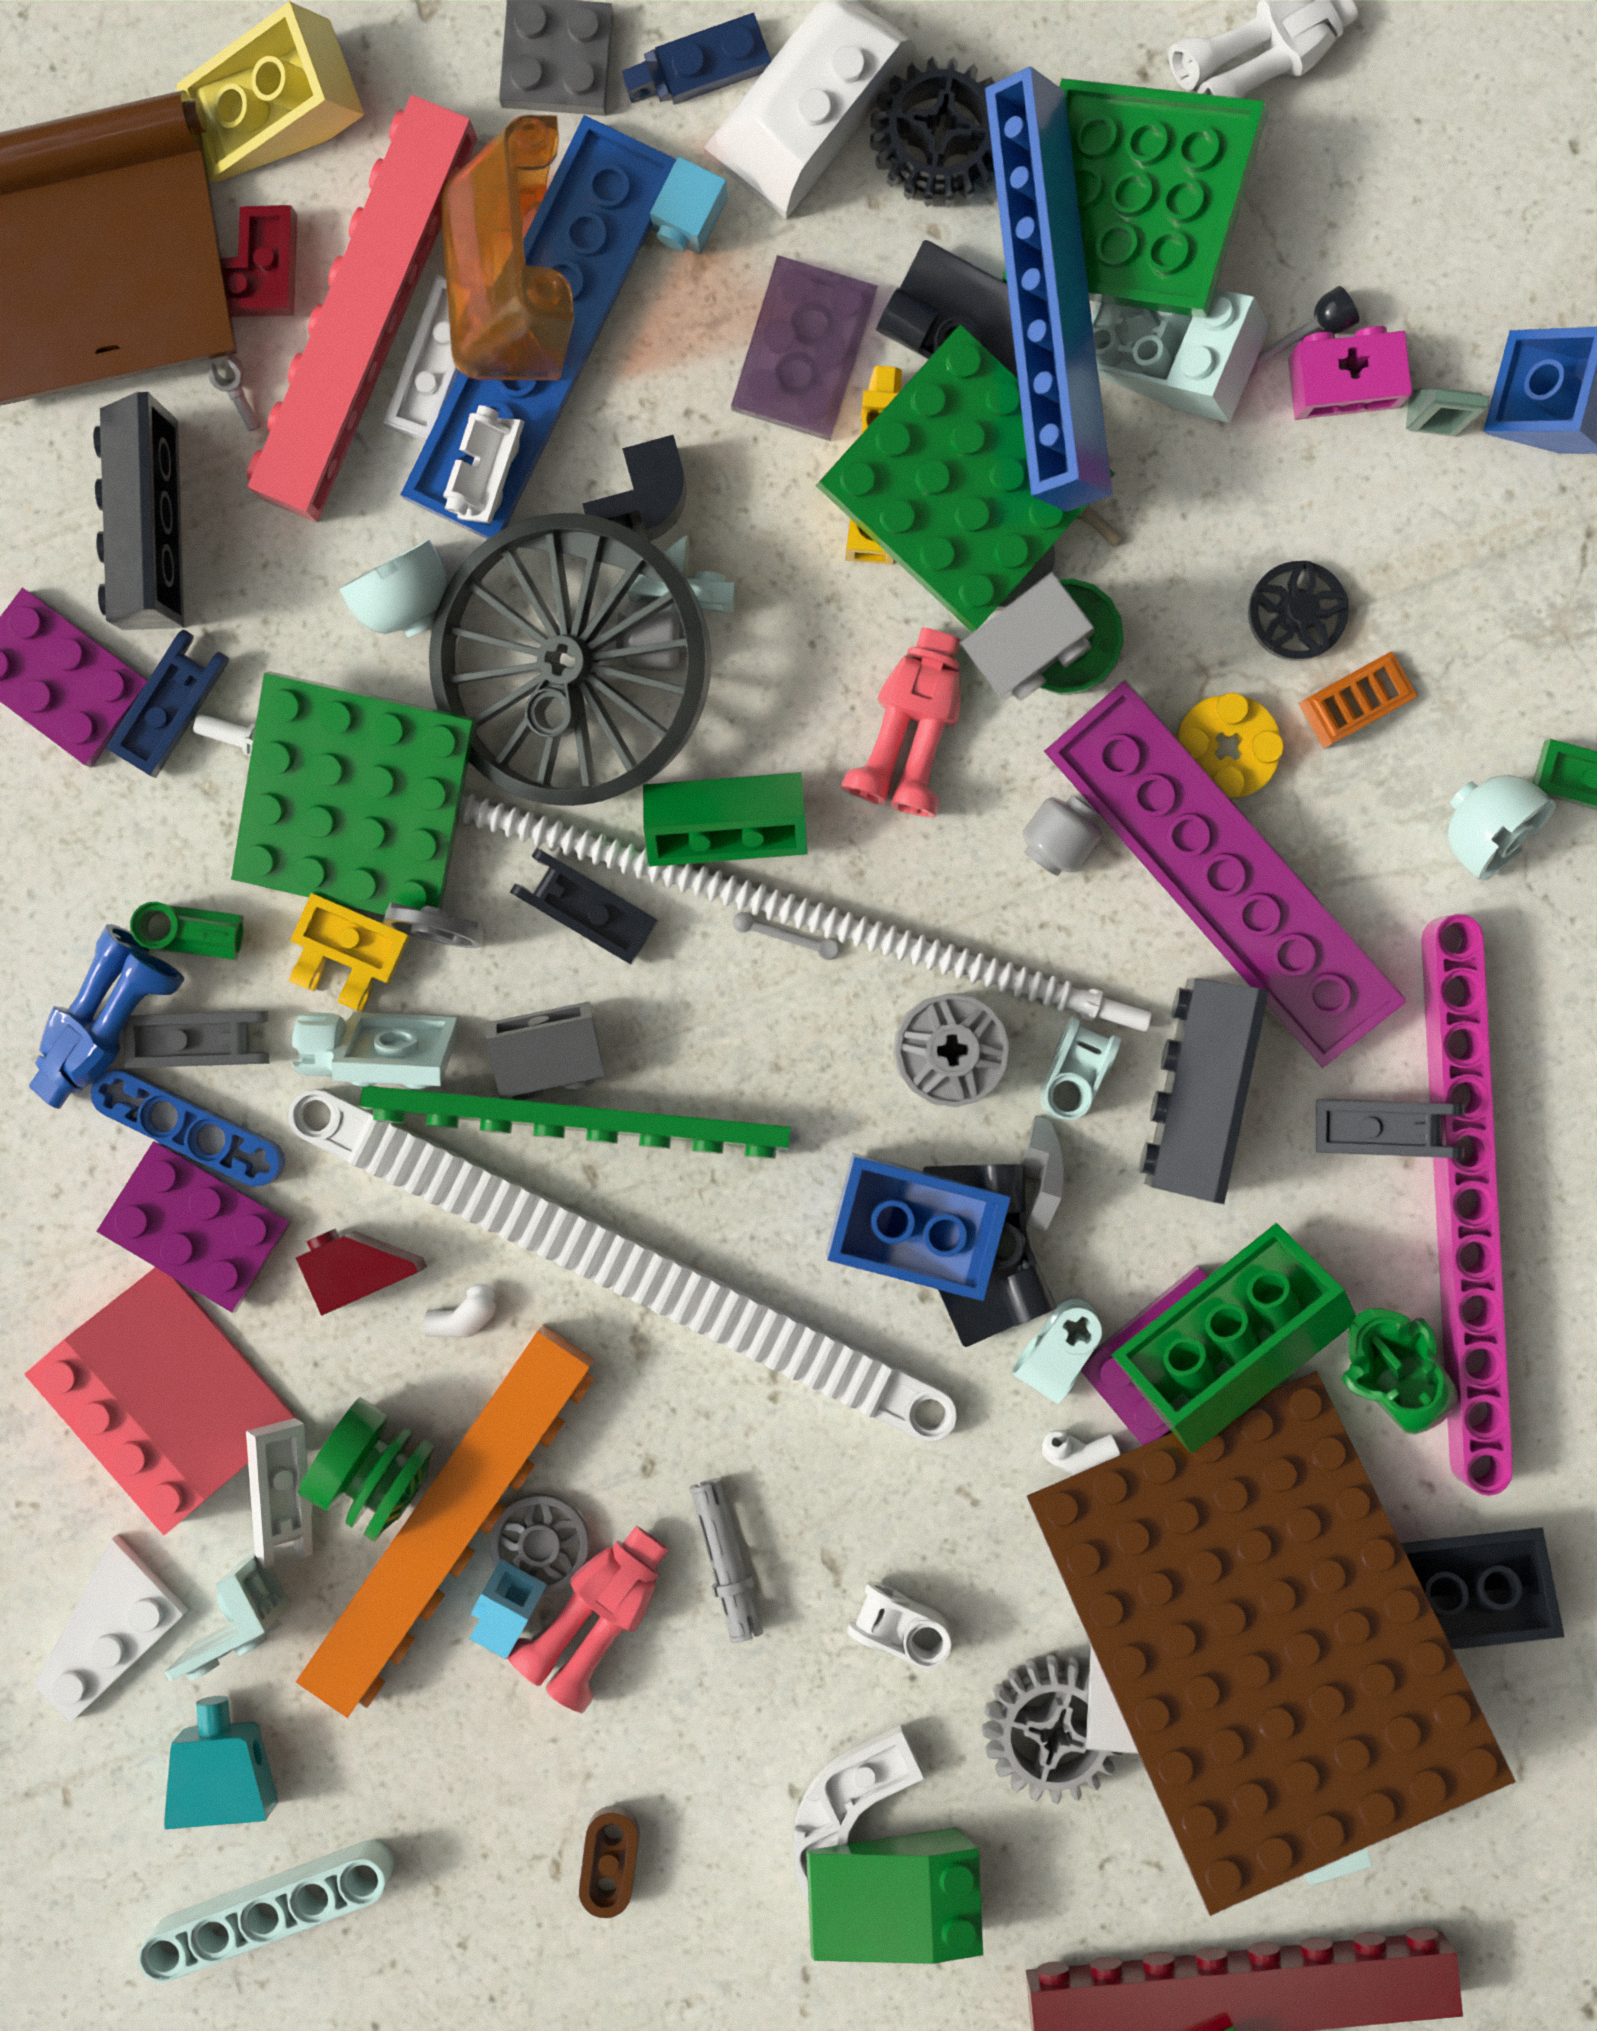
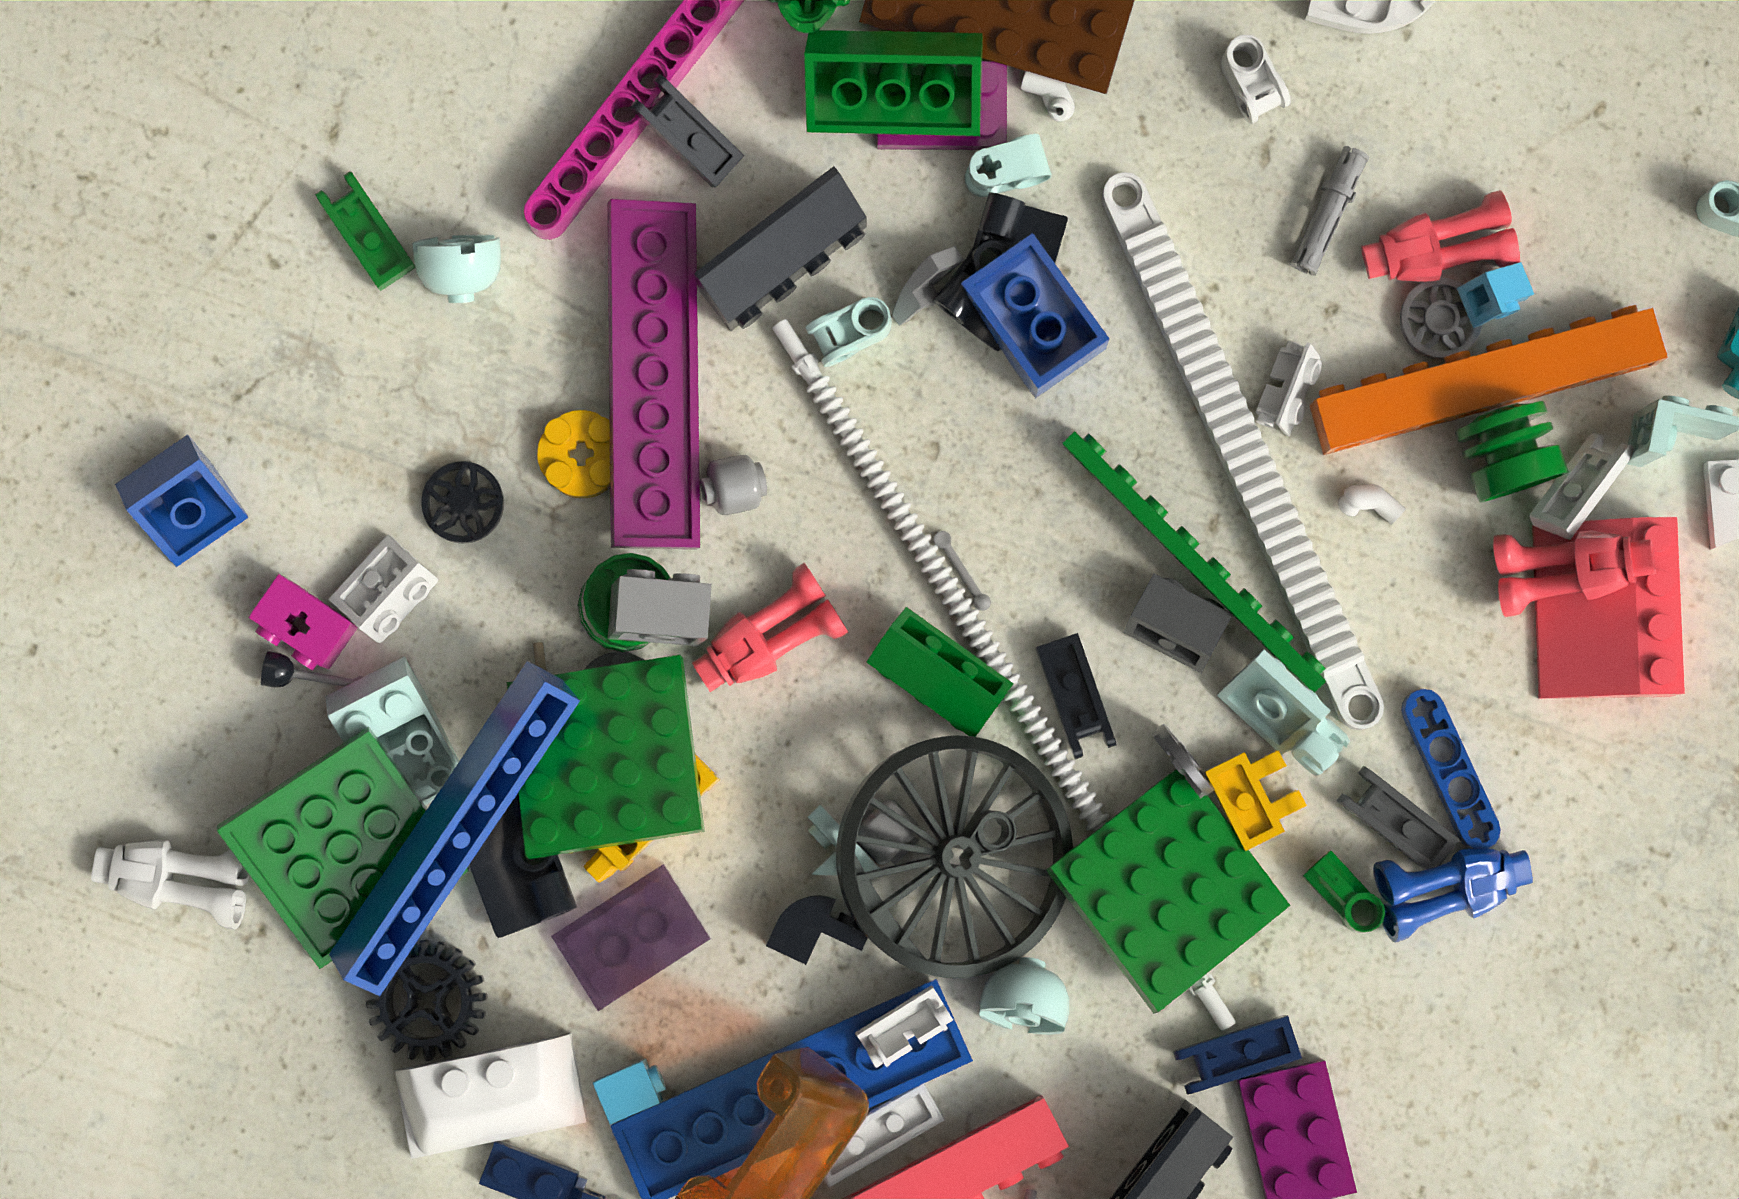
camera: 140 degrees left, 5 degrees down
(194, 1226) = (1498, 702): magenta plate -> none
(196, 1432) = (1601, 561): none -> coral piece
(352, 1268) = (1416, 588): dark red slope -> none
(609, 1859) = (1558, 87): reddish brown plate -> none
(629, 1380) = (1287, 404): none -> white hinge
(974, 1072) = (926, 432): light grey wheel -> none
(1301, 467) = (383, 589): none -> white bracket
(1323, 721) = (508, 419): orange slope -> none
(1443, 410) = (263, 550): sand green slope -> none

